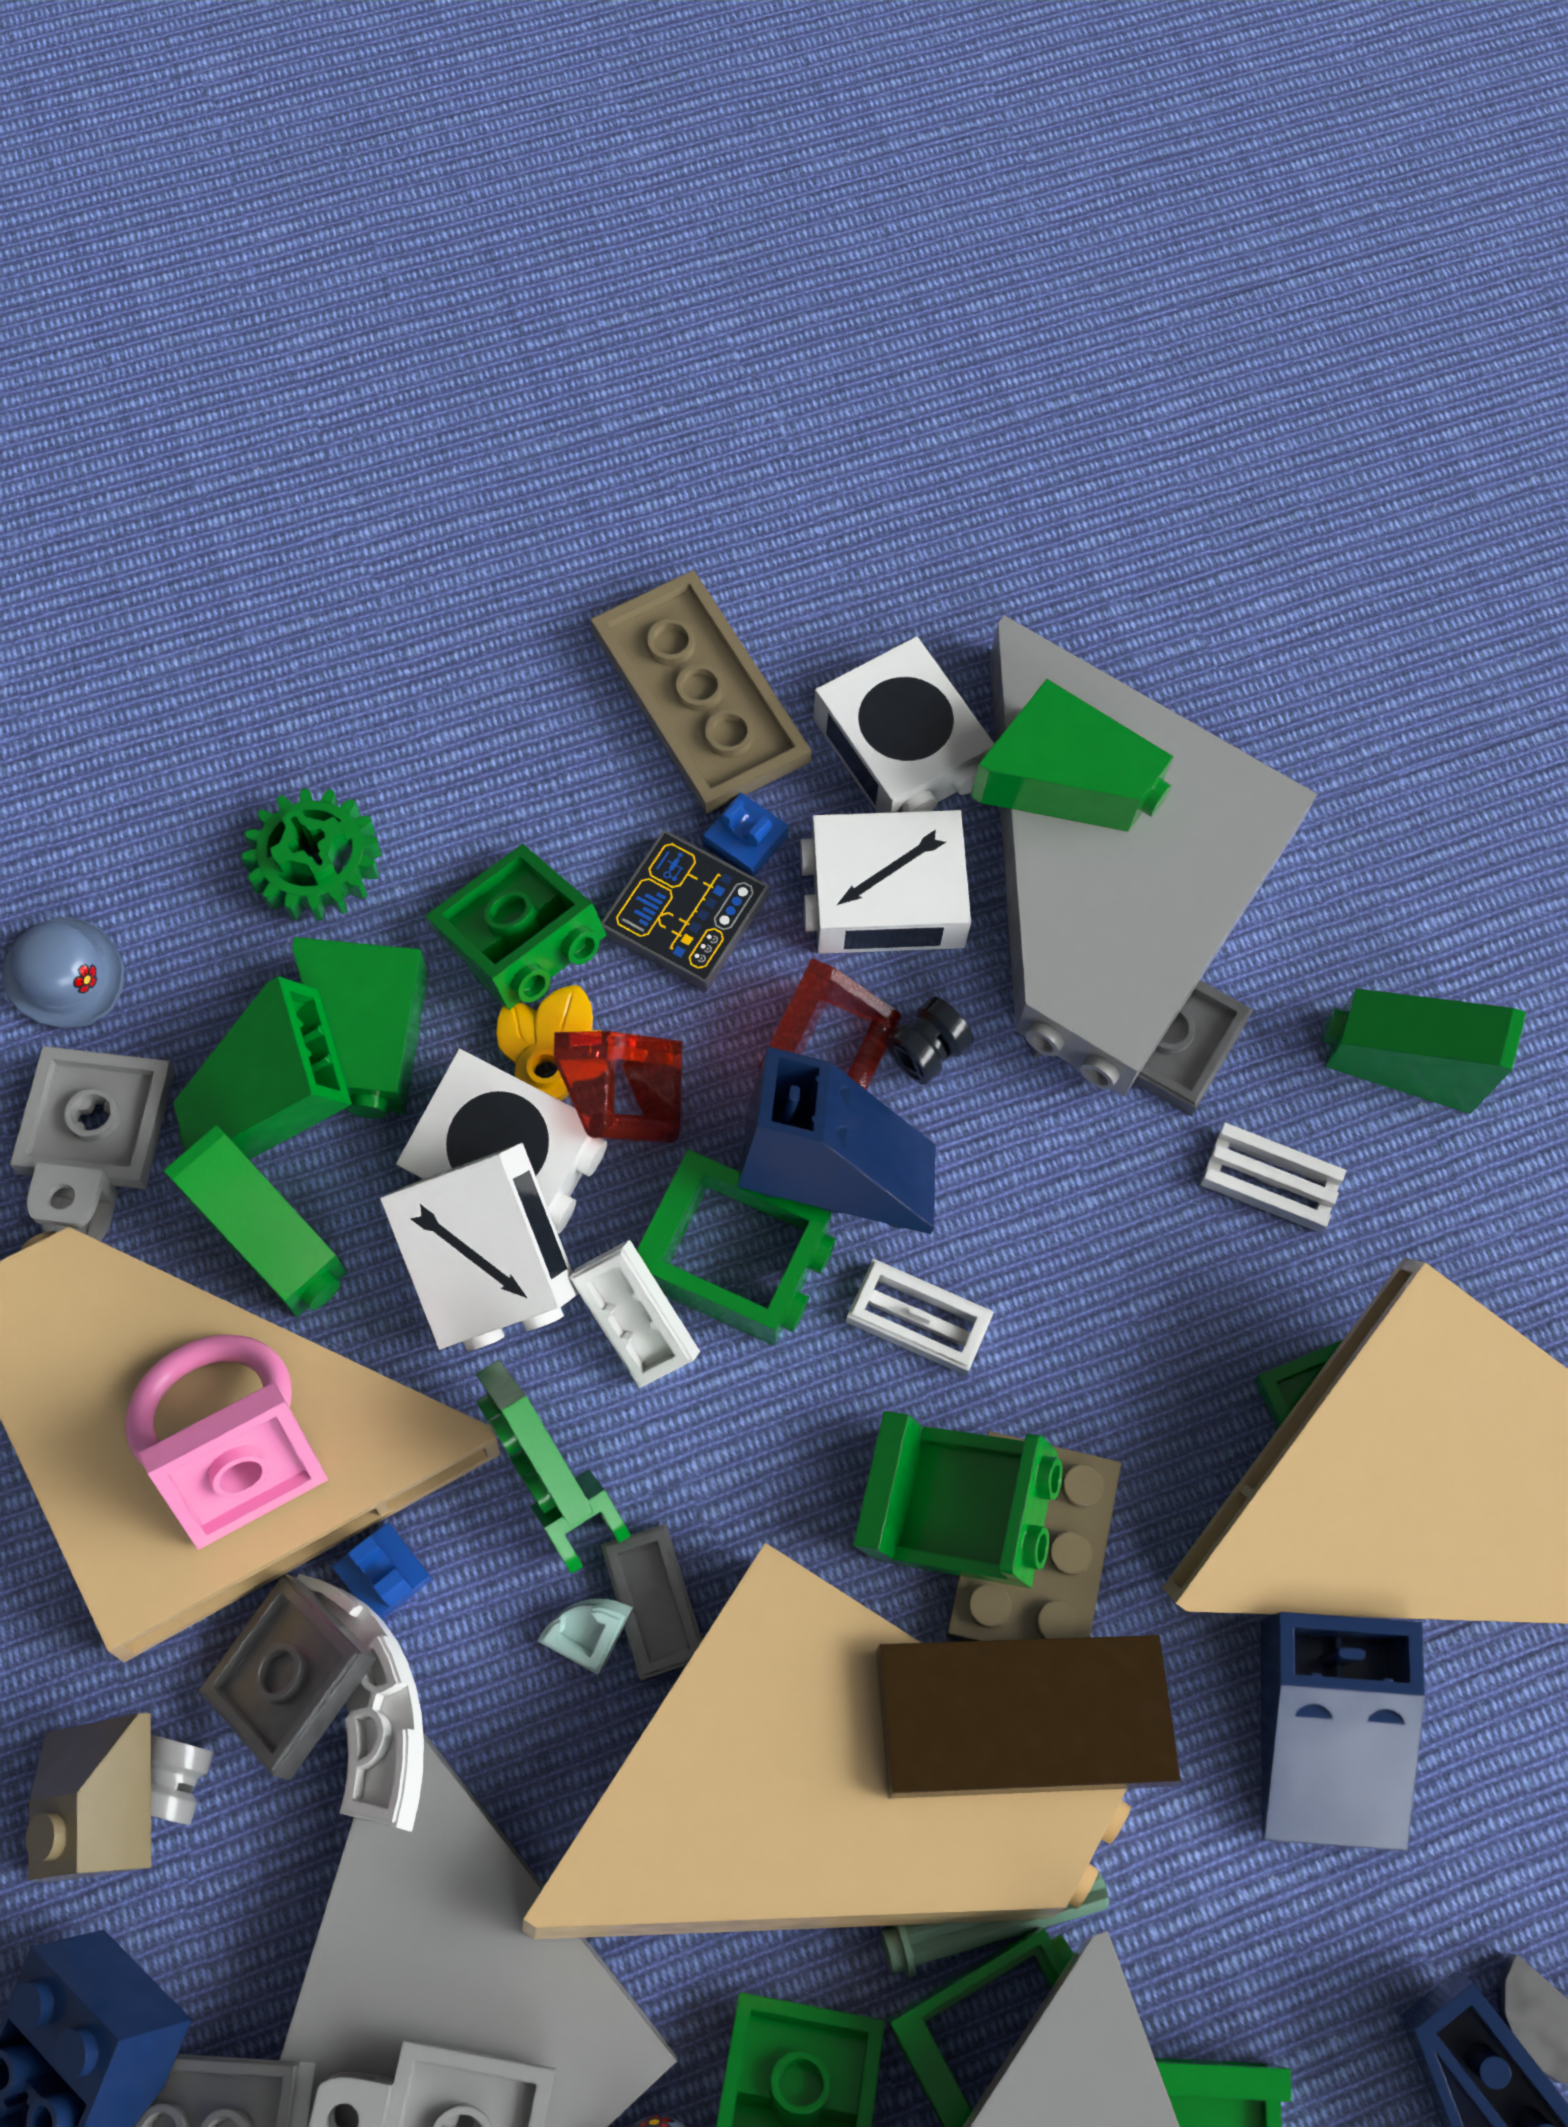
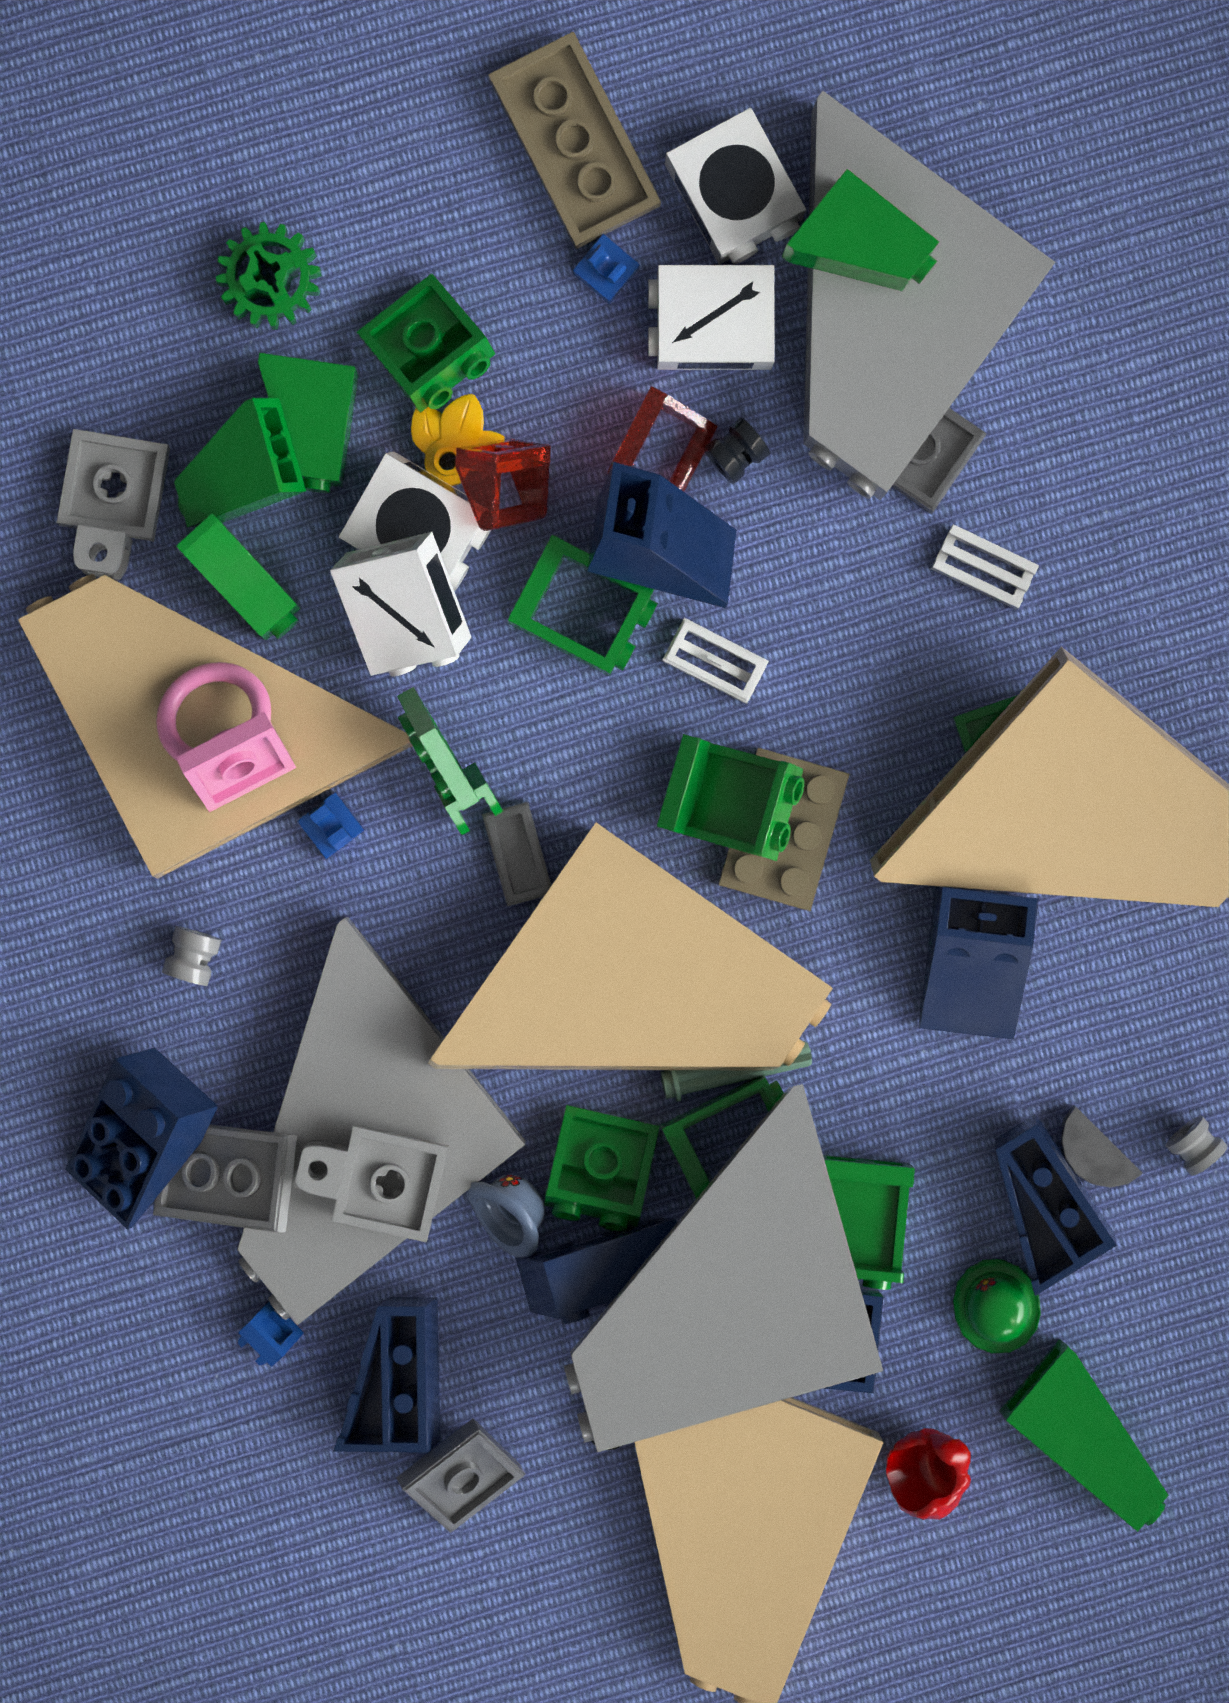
camera: 10 degrees right, 20 degrees up
(63, 973) = (81, 364): sand blue hat -> none
(91, 1801) = (146, 968): dark tan slope -> none
(287, 1676) = (270, 894): flat silver tile -> none
(382, 1720) = (331, 905): white tile -> none
(587, 1631) = (471, 872): light aqua tile -> none
(634, 1314) = (509, 654): white plate -> none
(685, 910) = (556, 331): black tile -> none
(1025, 1716) = (764, 945): dark brown tile -> none
(1424, 1045) = (1106, 473): green slope -> none

